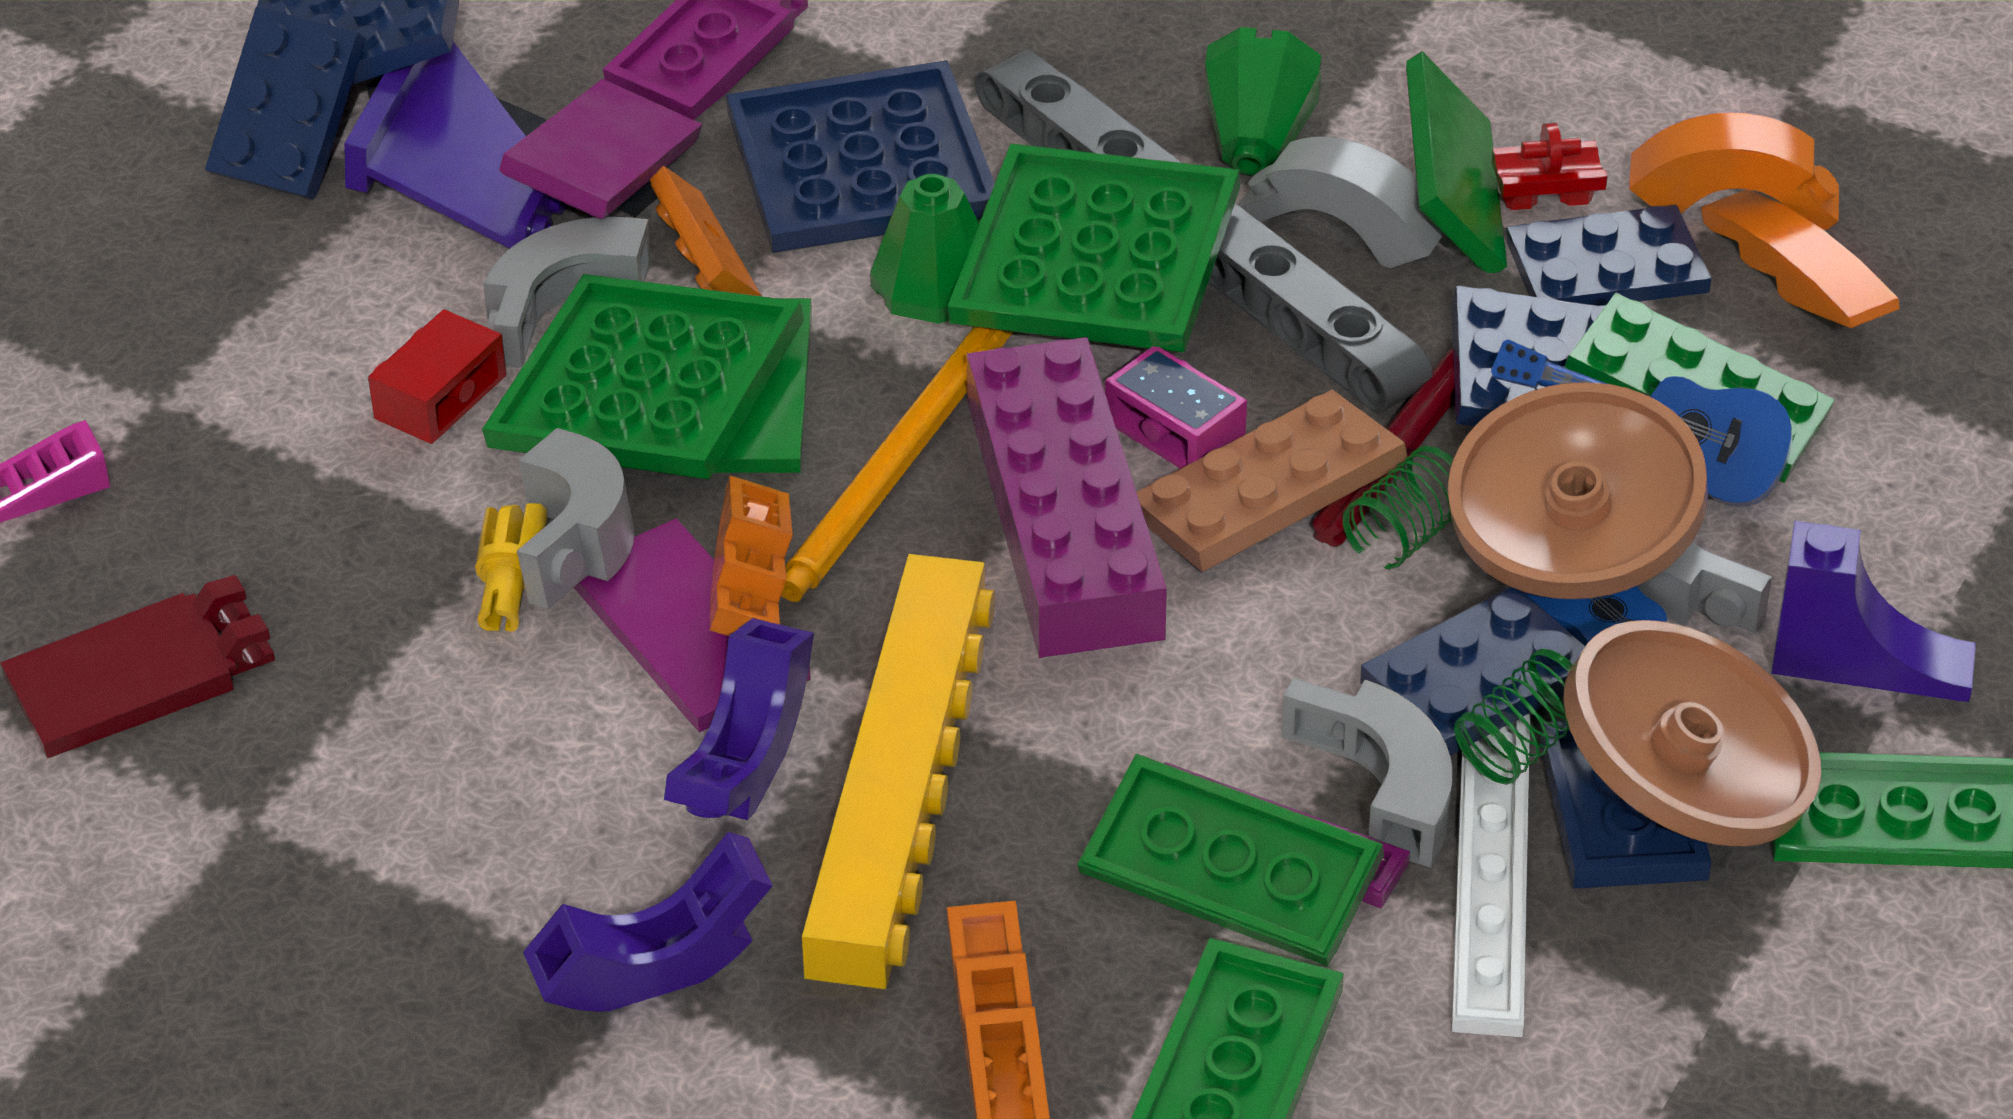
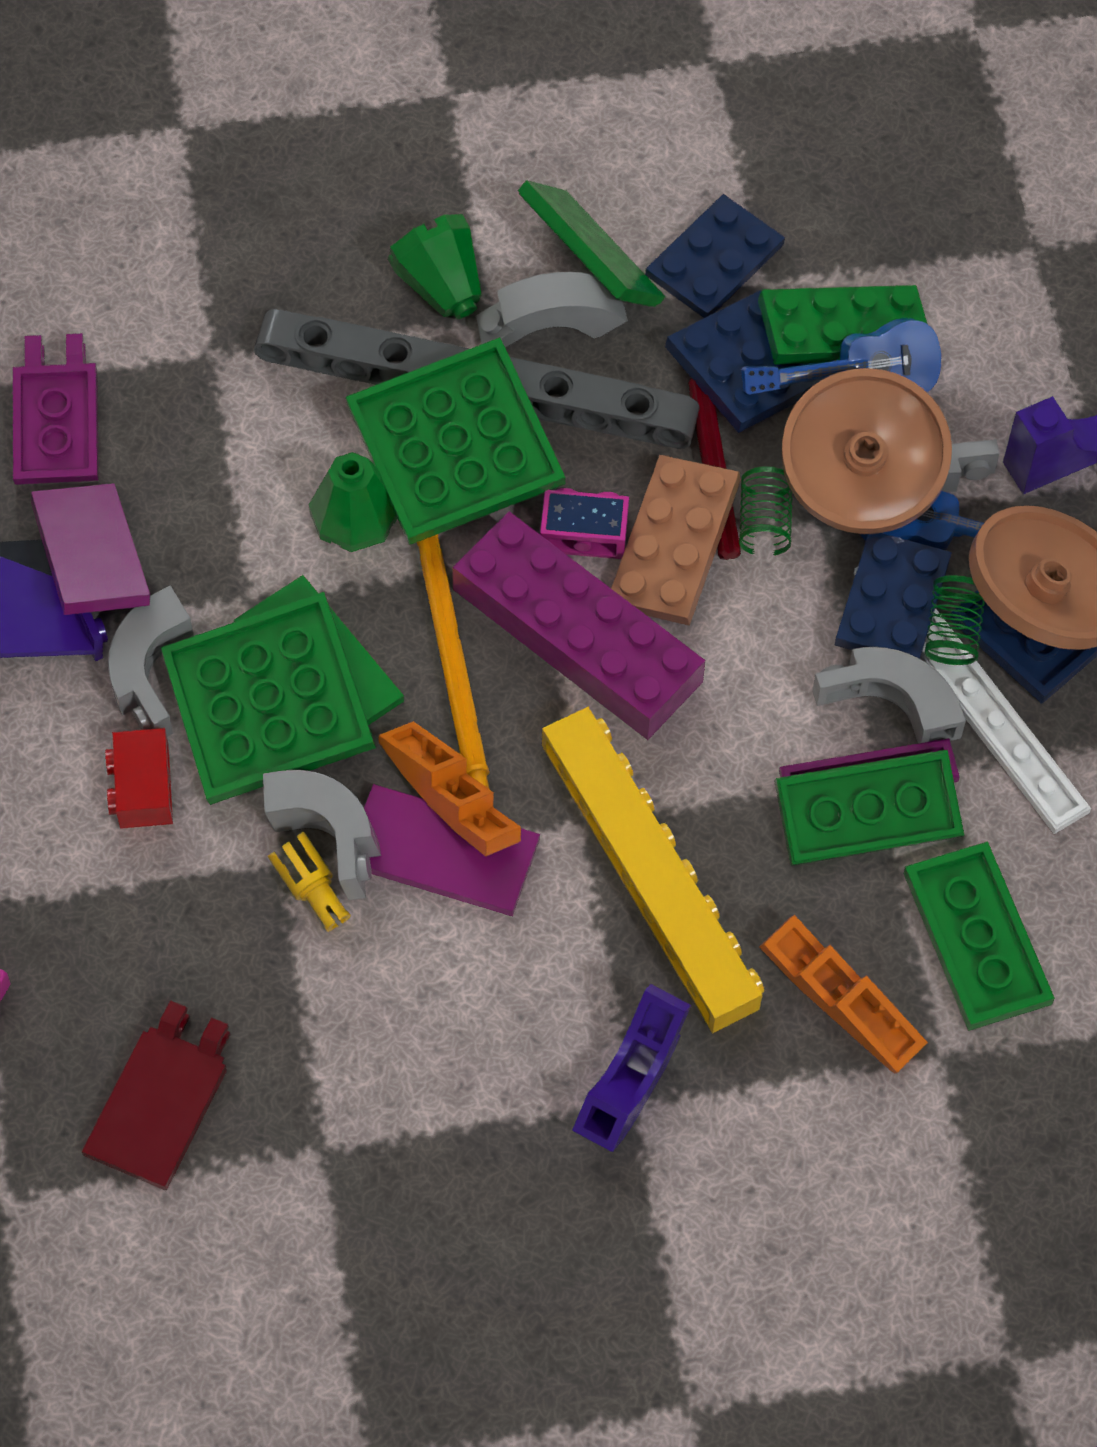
camera: 40 degrees left, 20 degrees up
(701, 235) = (200, 572): orange tile -> none
(751, 723) = (555, 904): dark purple arch -> none
(842, 148) = (233, 447): dark blue plate -> none
(1549, 167) = (640, 214): red hips -> none
(1734, 153) = (738, 149): orange arch -> none
(1807, 261) = (830, 195): orange slope -> none

